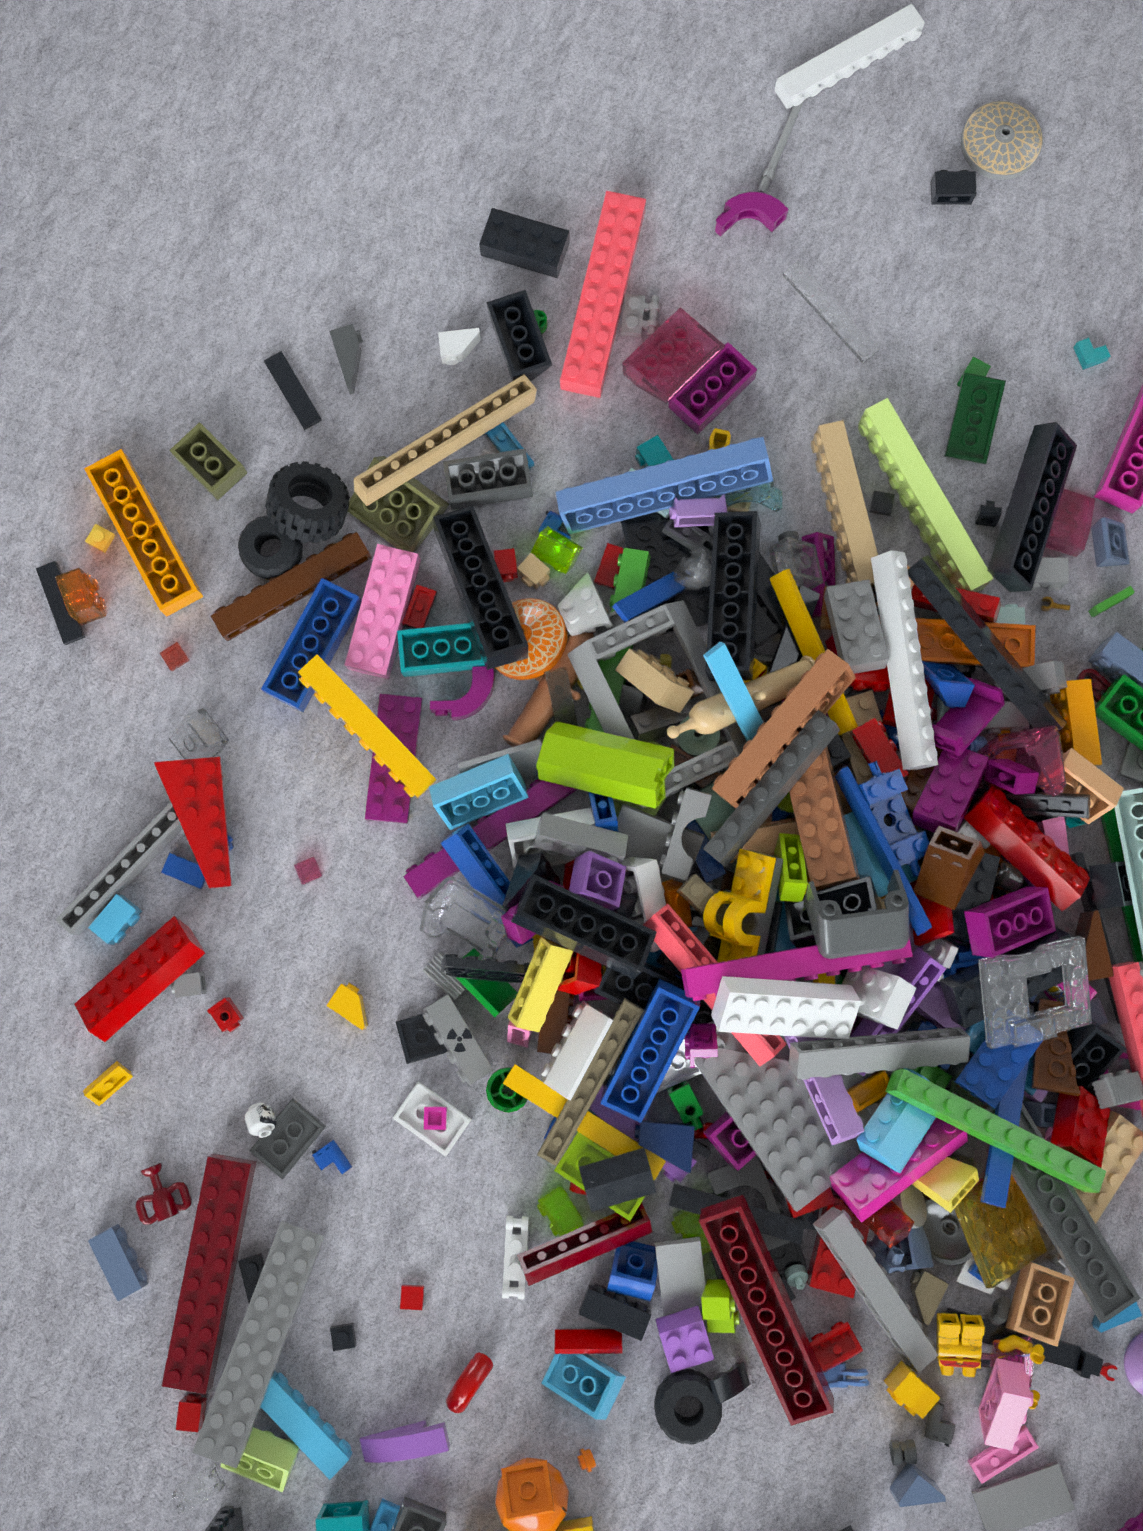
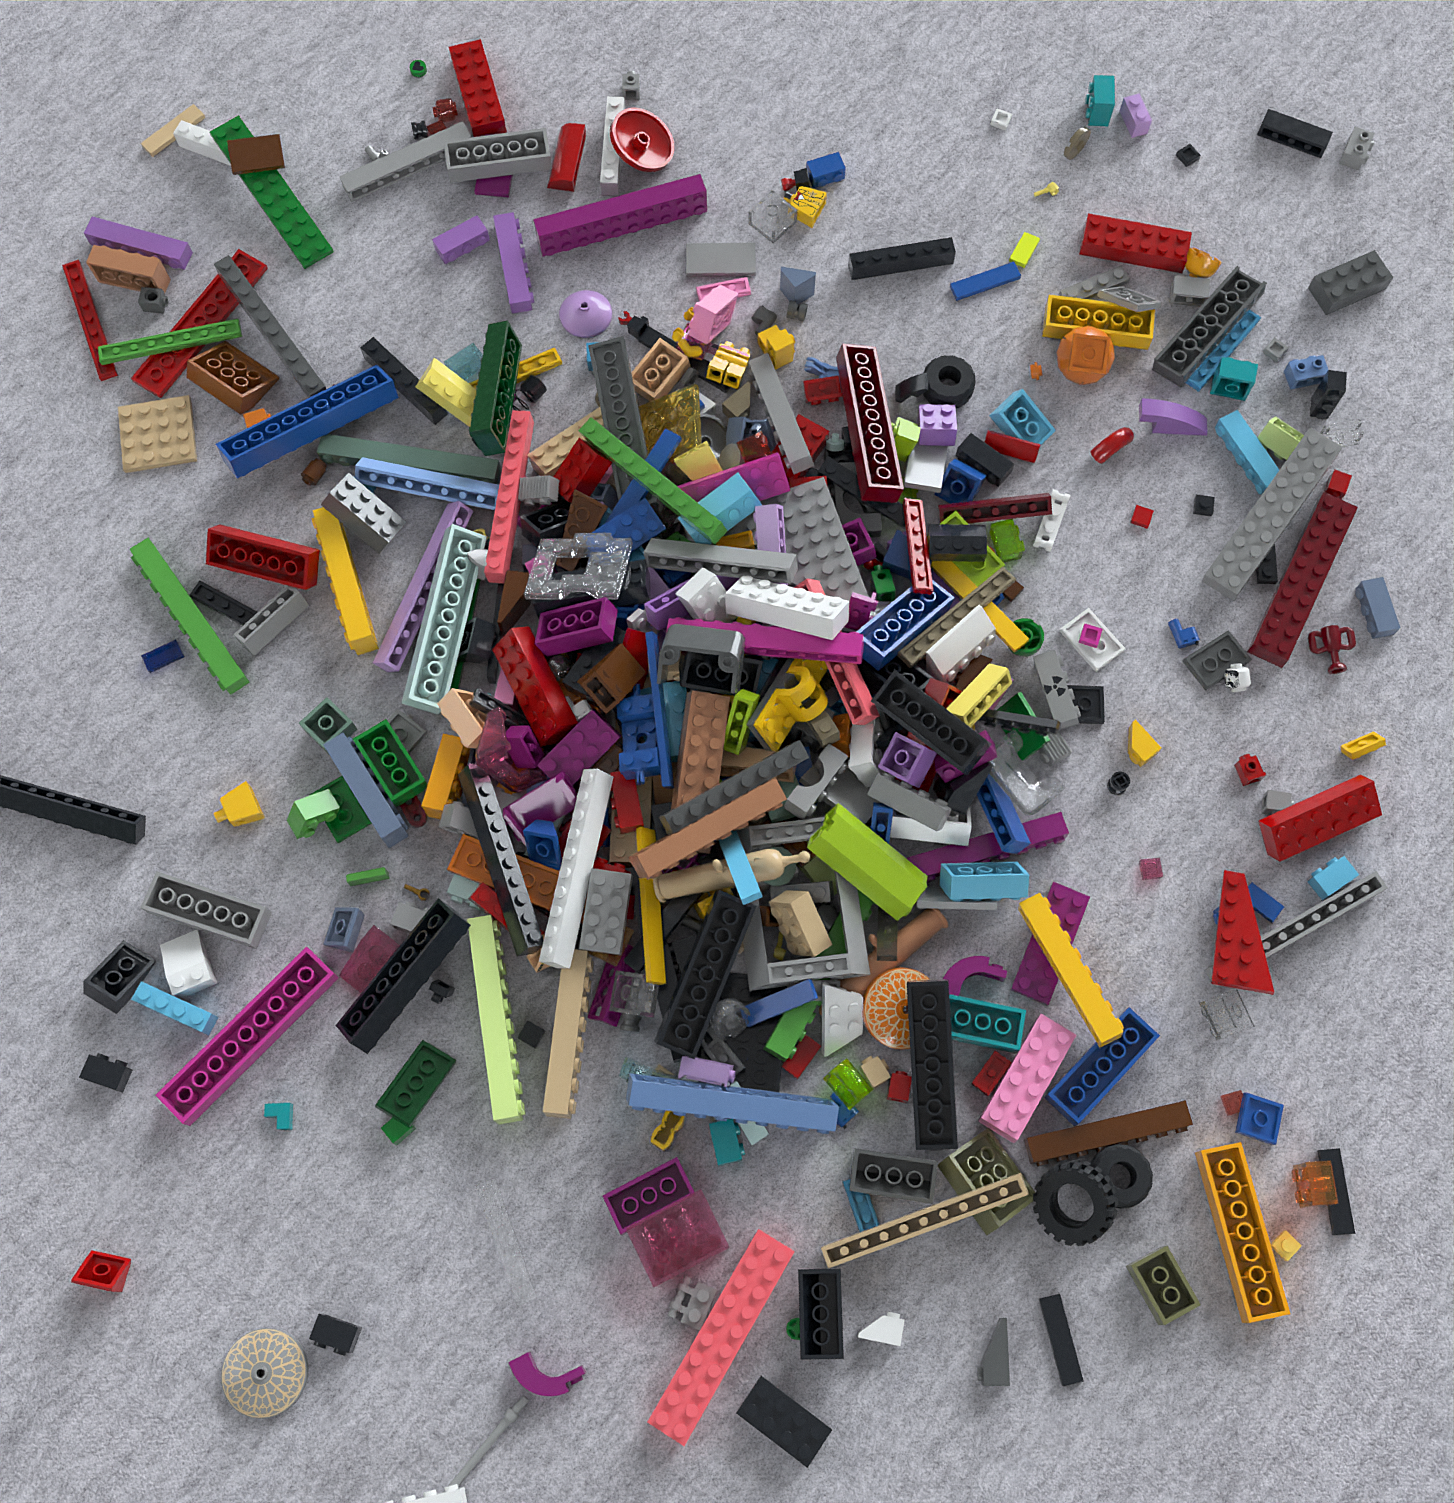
camera: 165 degrees left, 10 degrees down
(146, 647) = (1259, 1118): none -> blue tile
(366, 955) = (1118, 787): none -> black wheel
(532, 1153) = (1013, 591): none -> reddish brown tile
(660, 1157) = (917, 546): none -> tile

